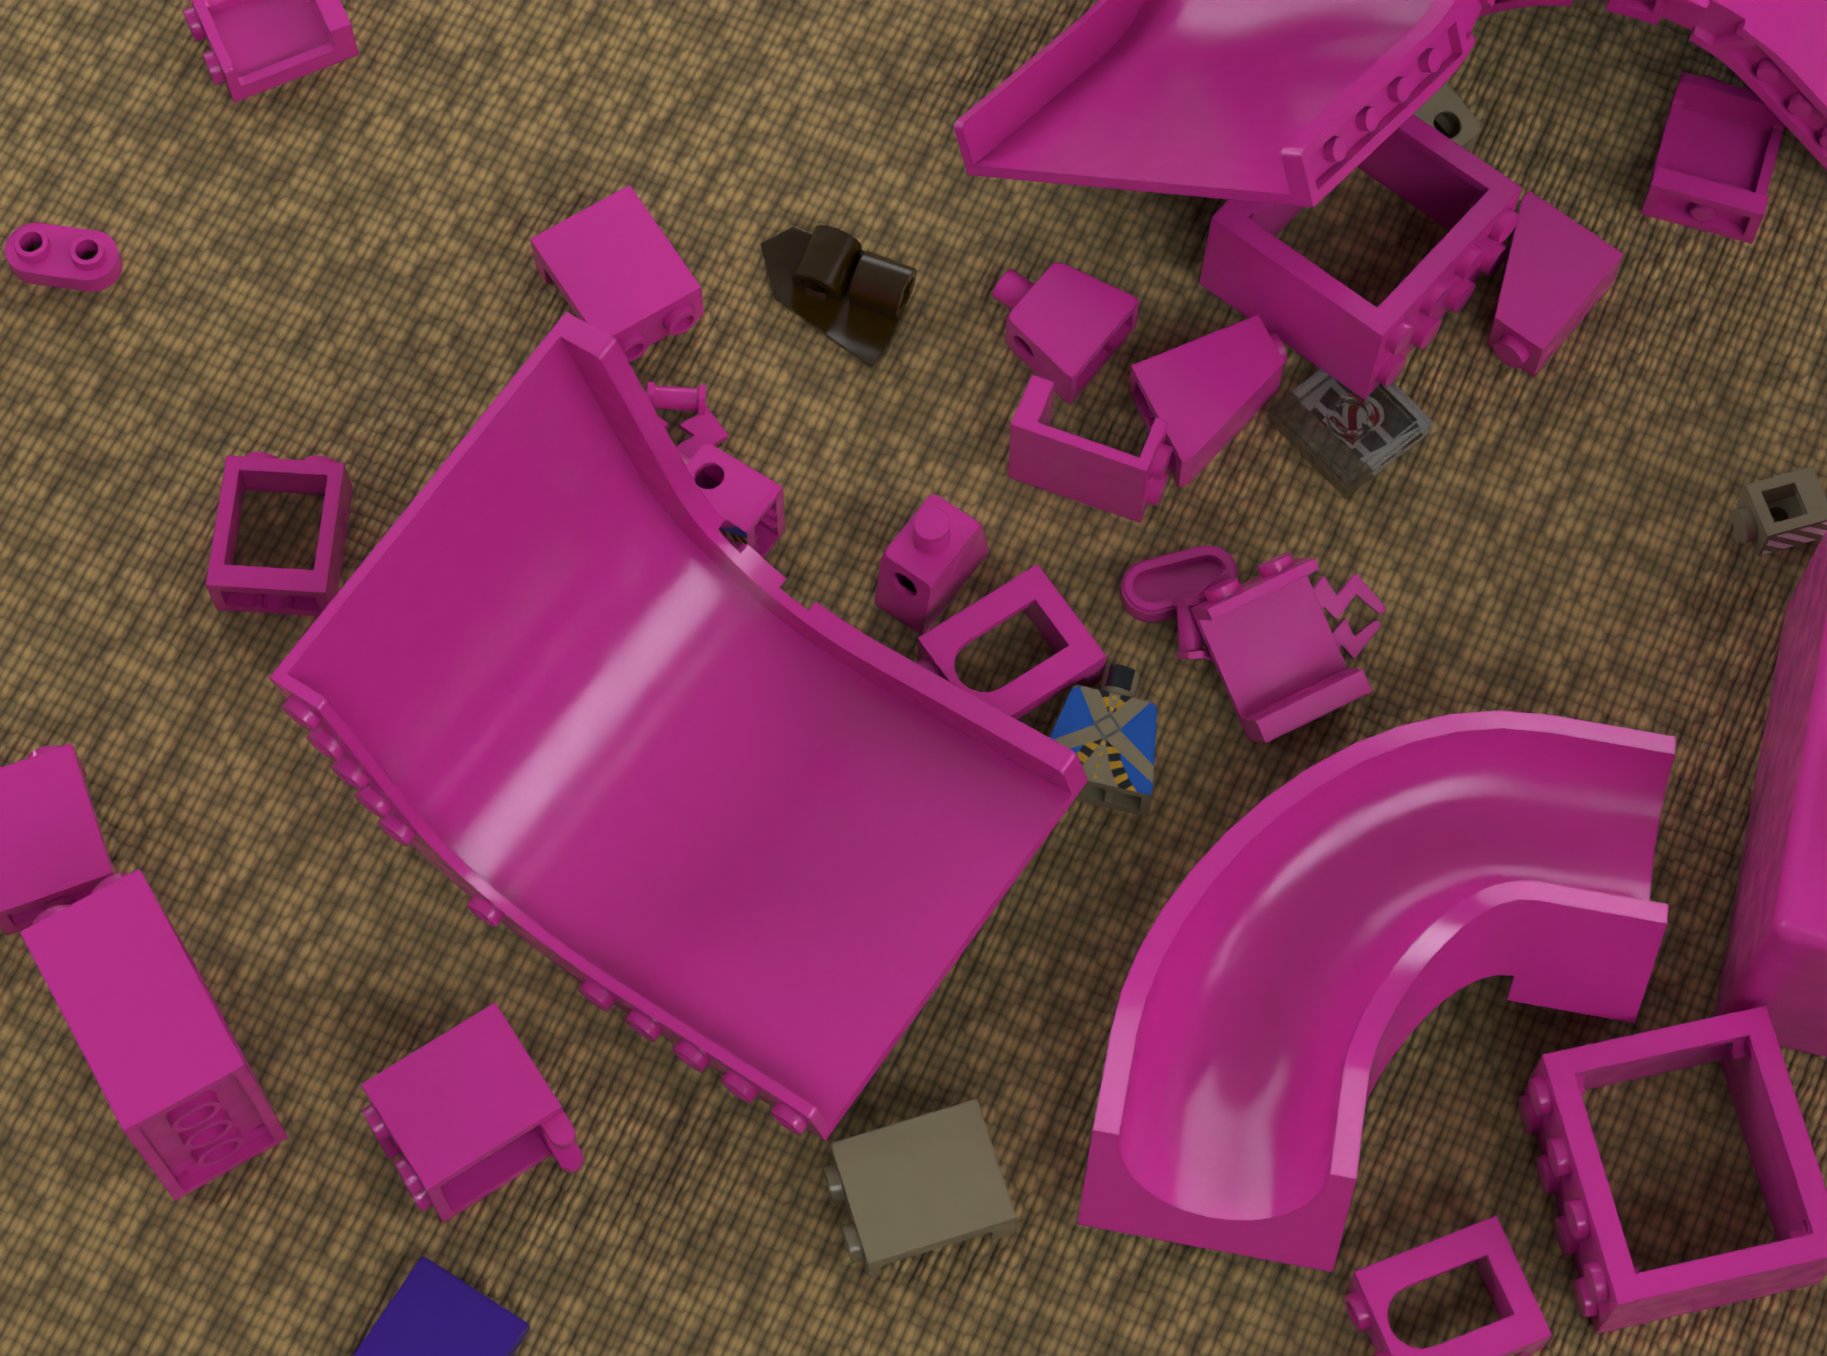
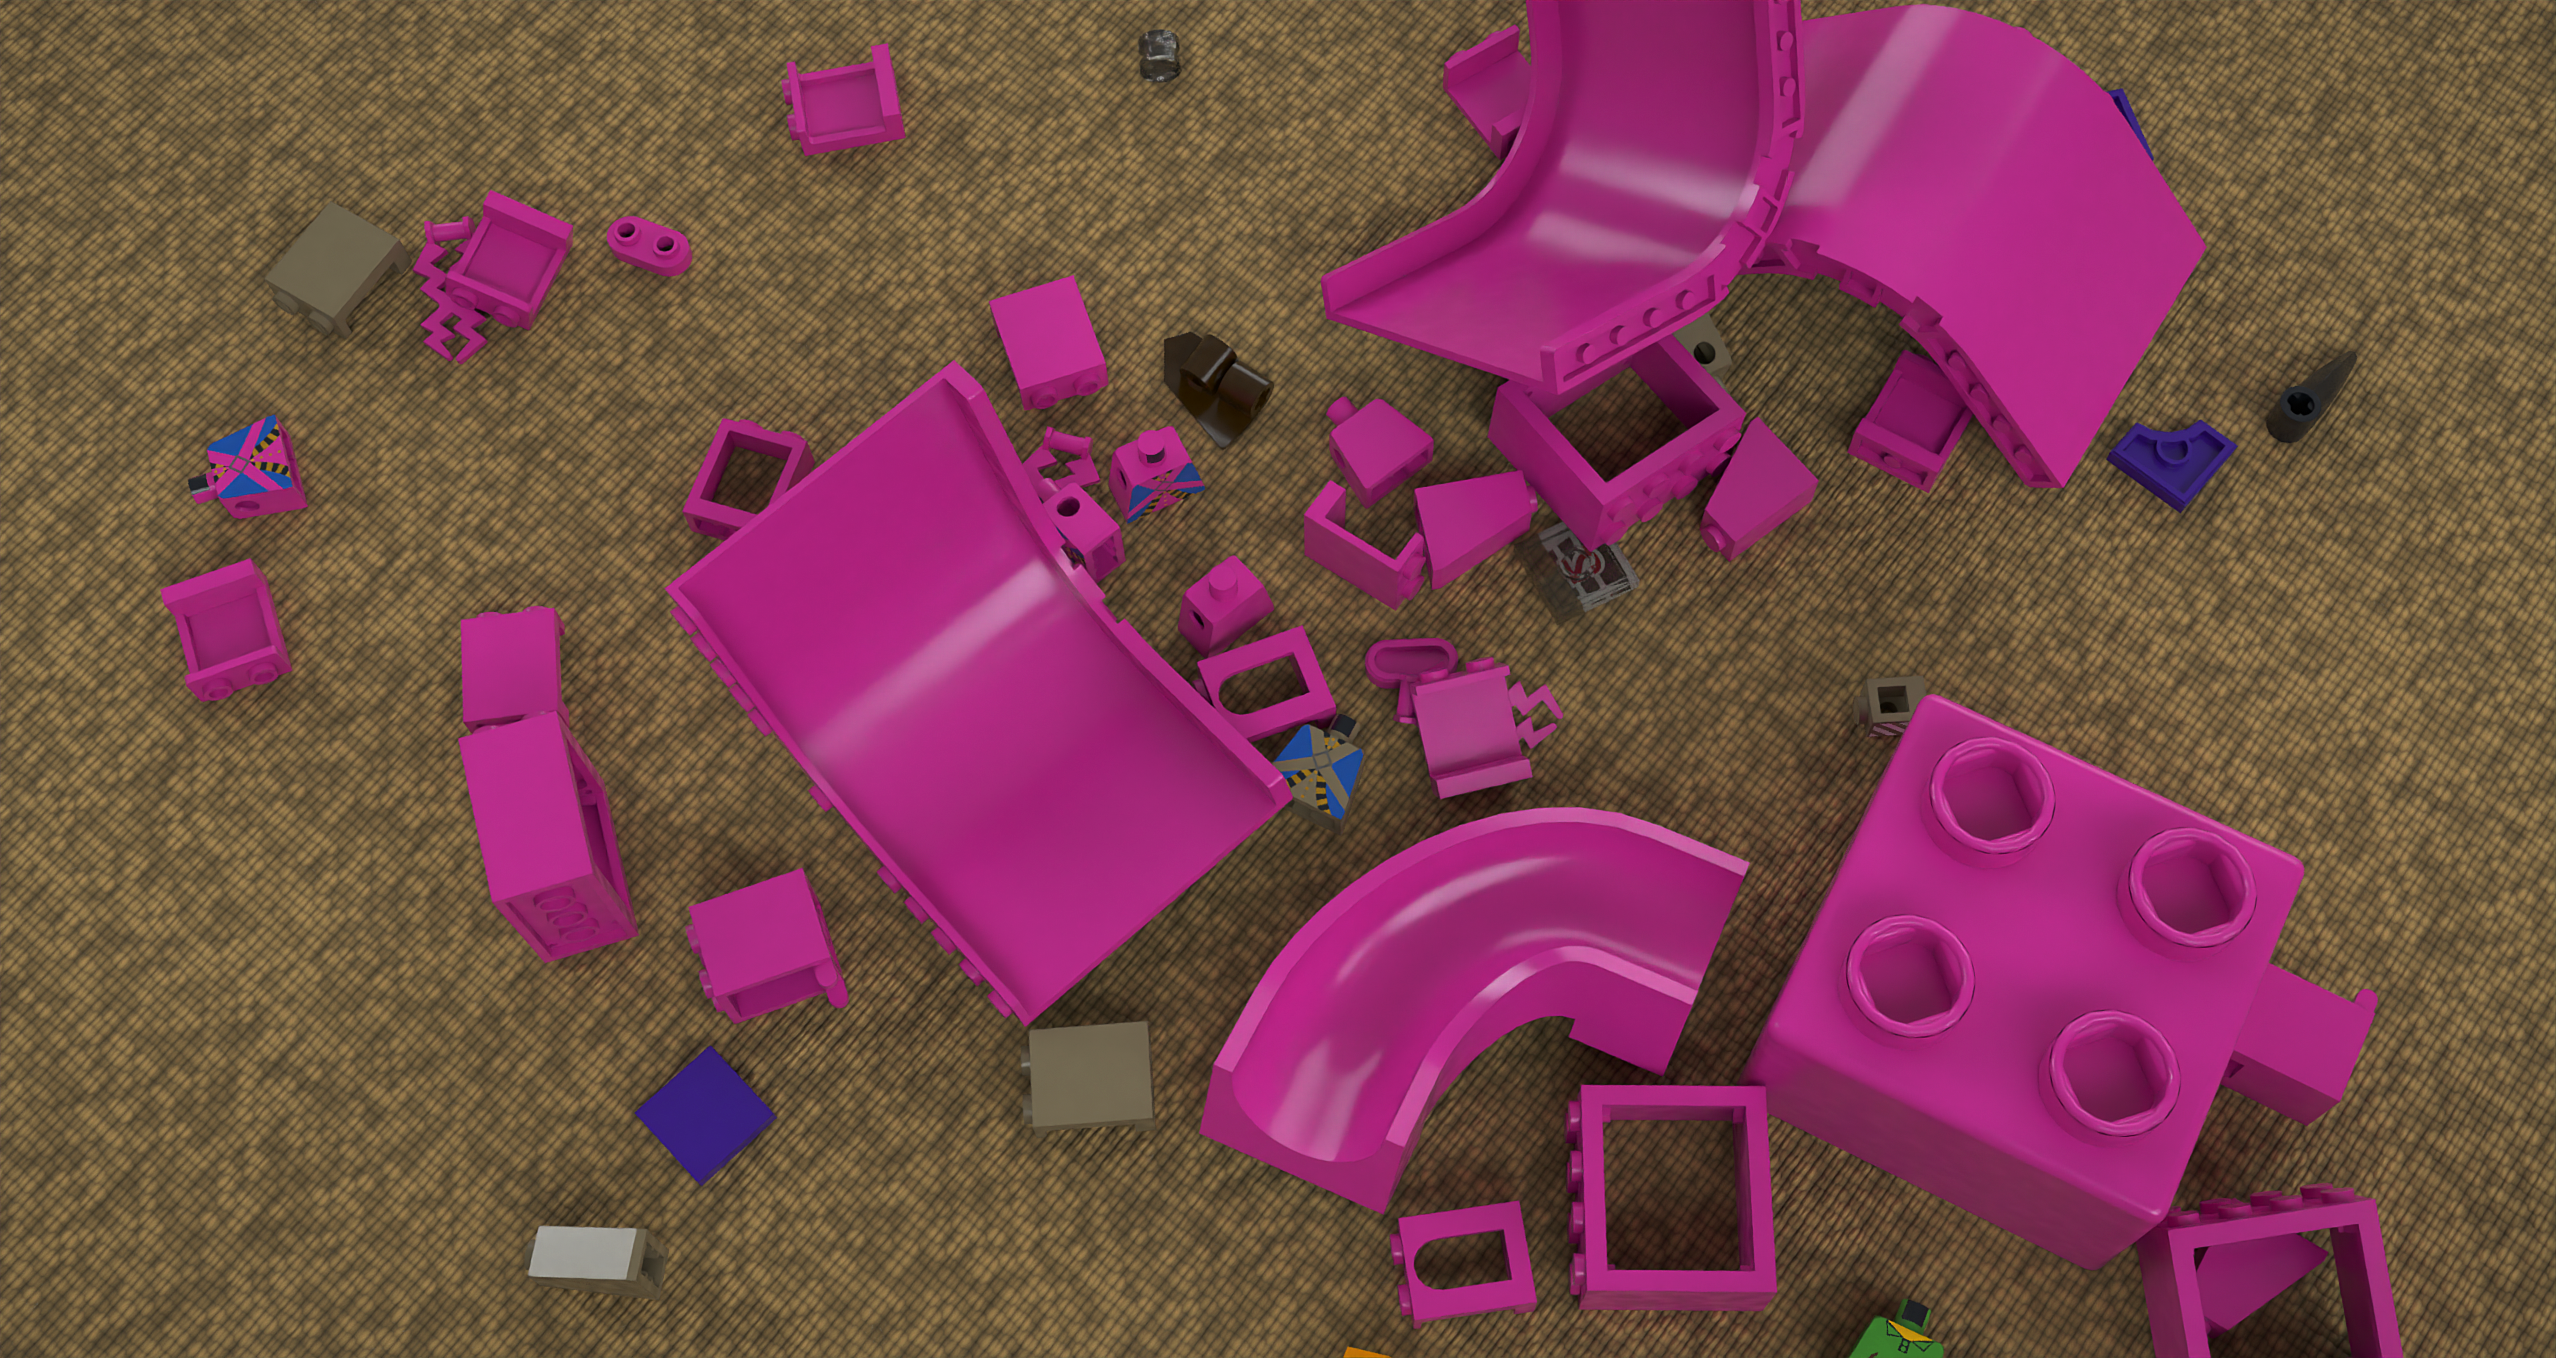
camera: 15 degrees right, 0 degrees up
(801, 408) = (1152, 474): none -> dark pink torso

